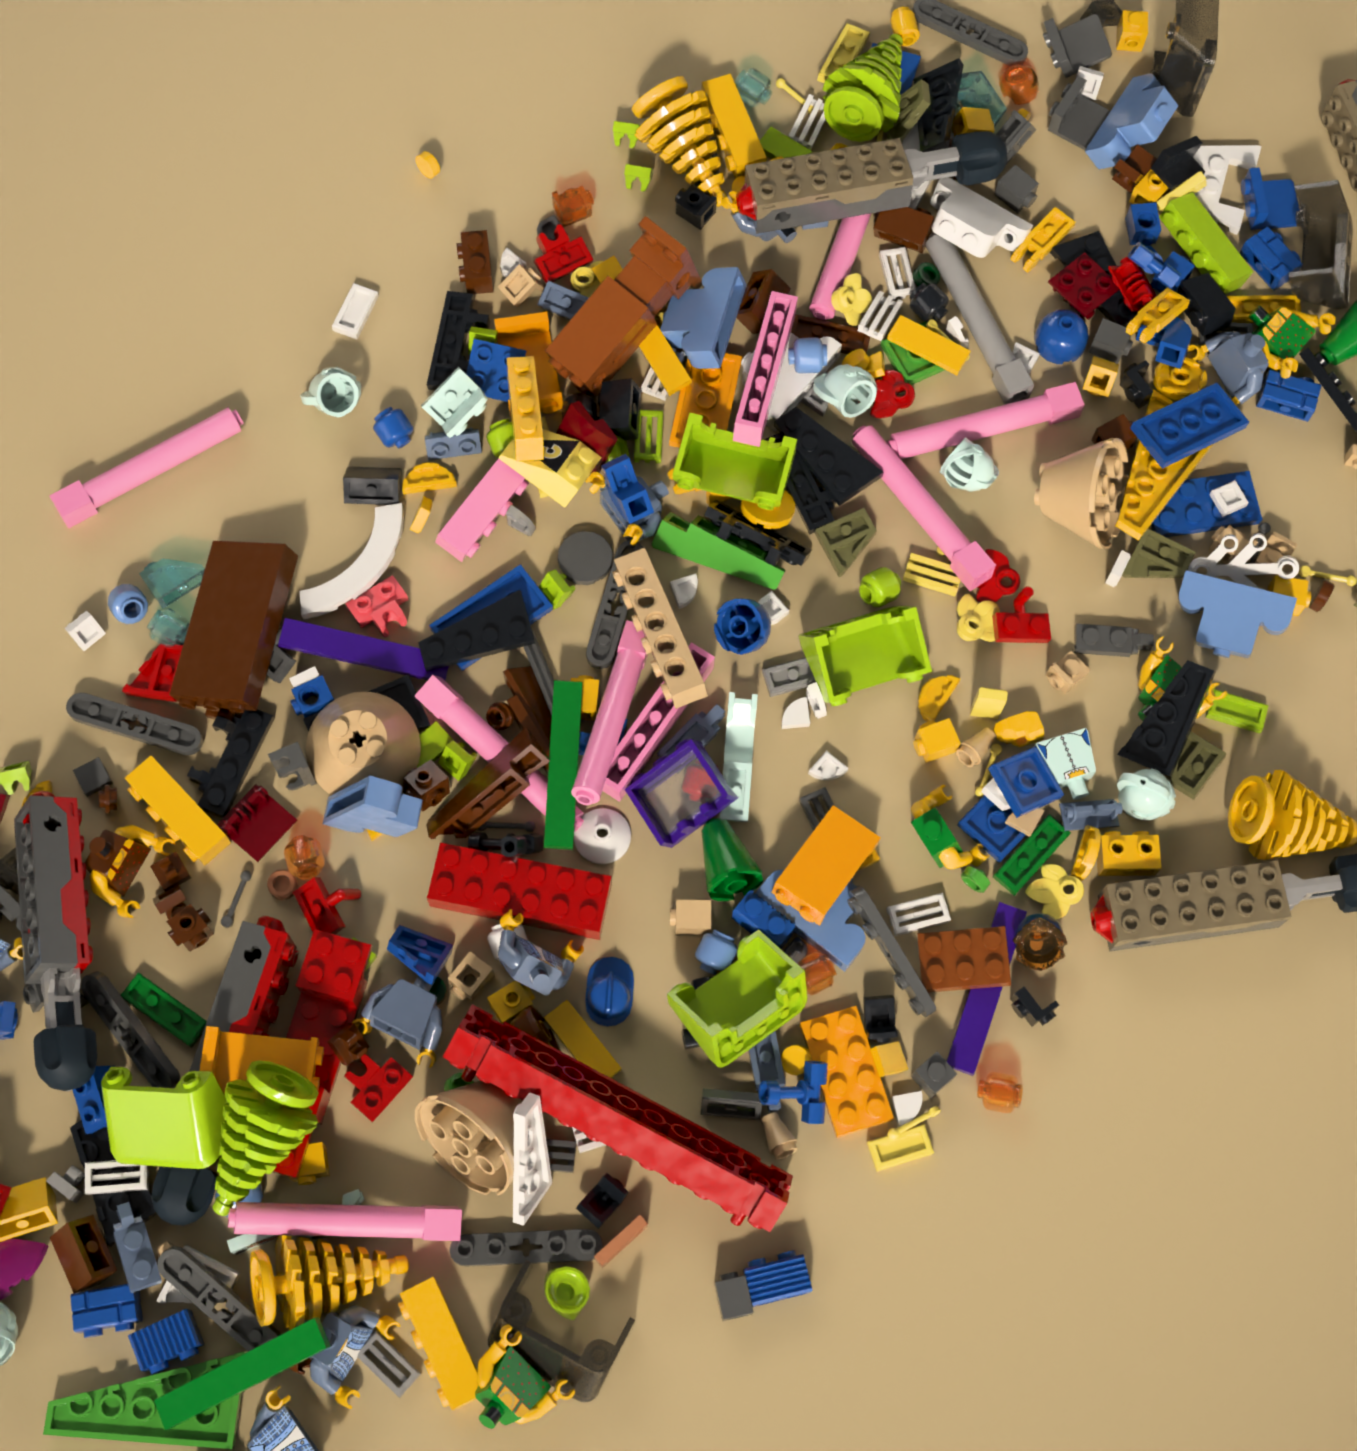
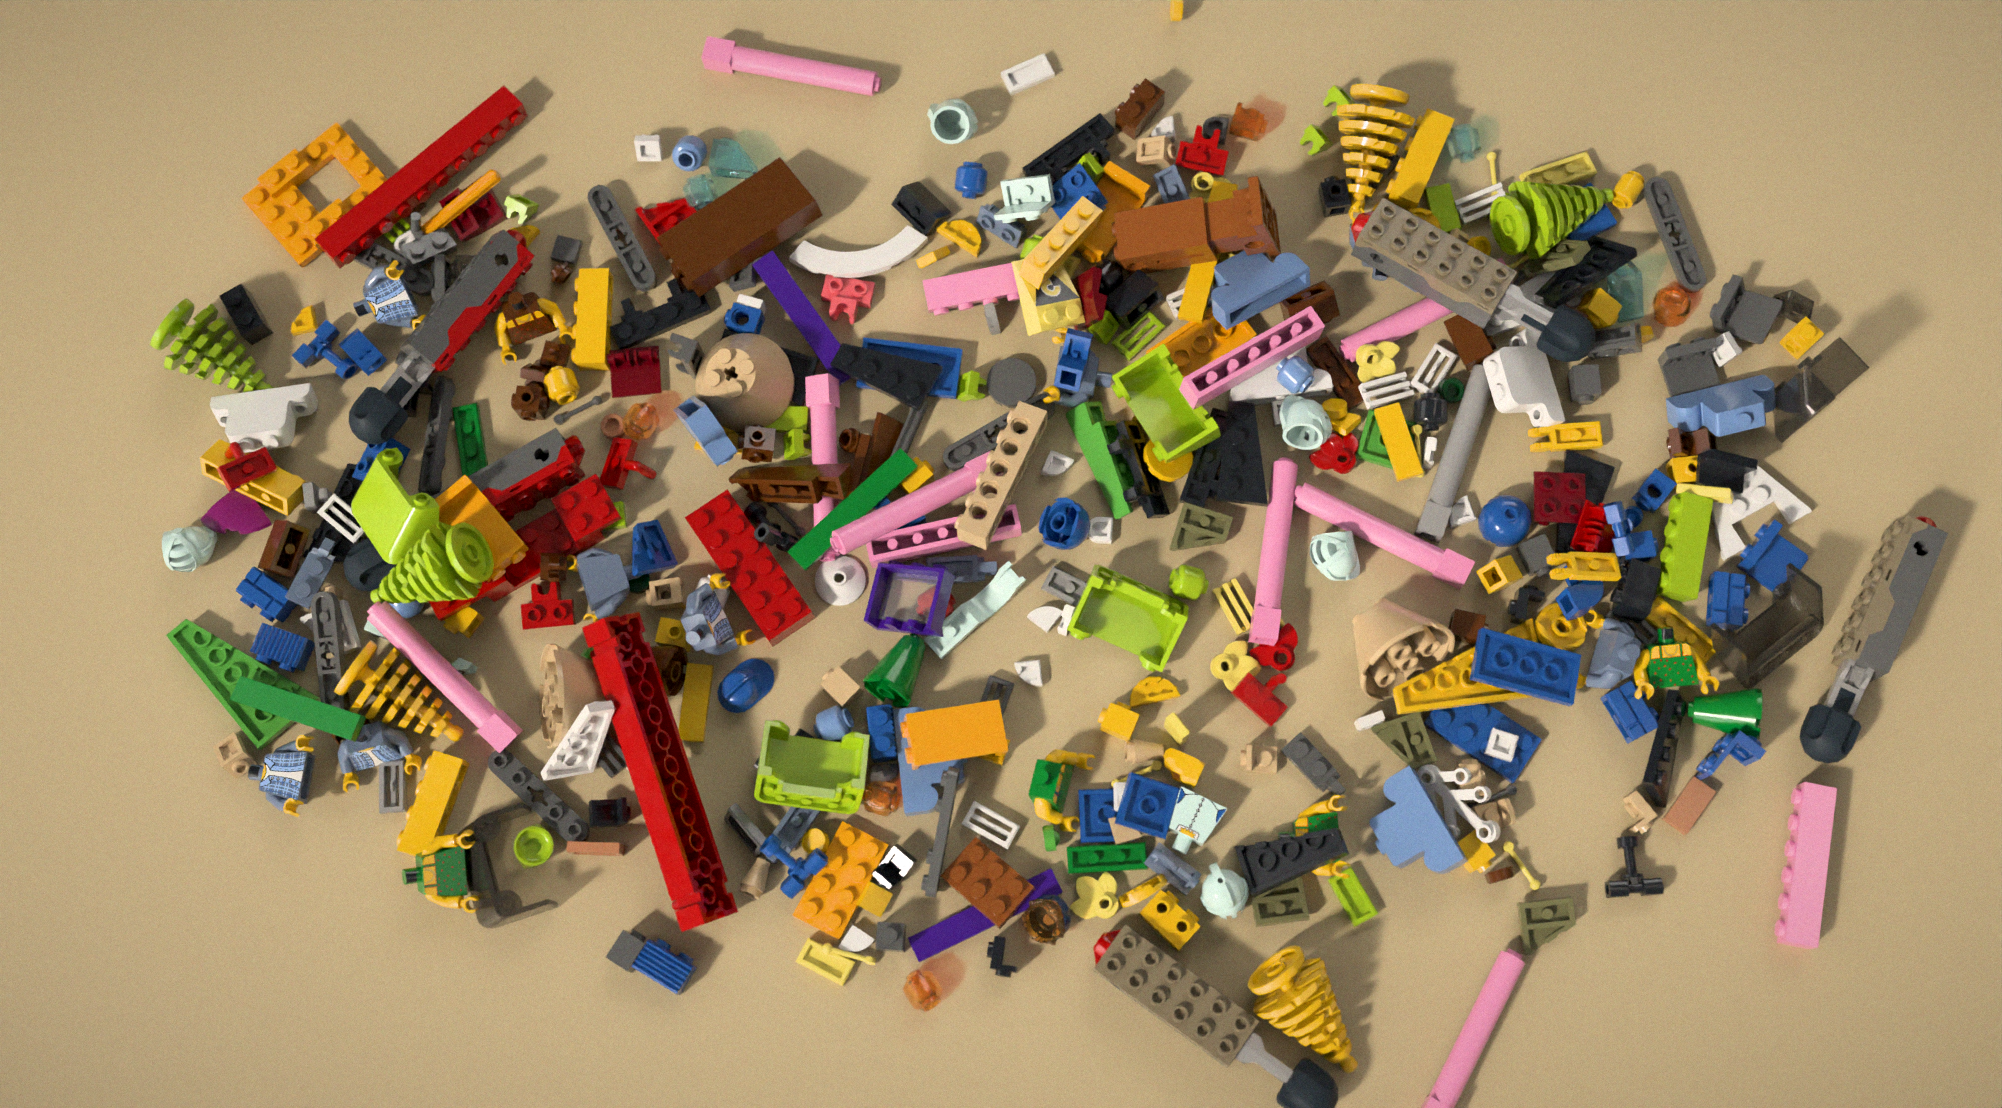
camera: 55 degrees right, 5 degrees up
(203, 888) = (561, 385): none -> yellow head

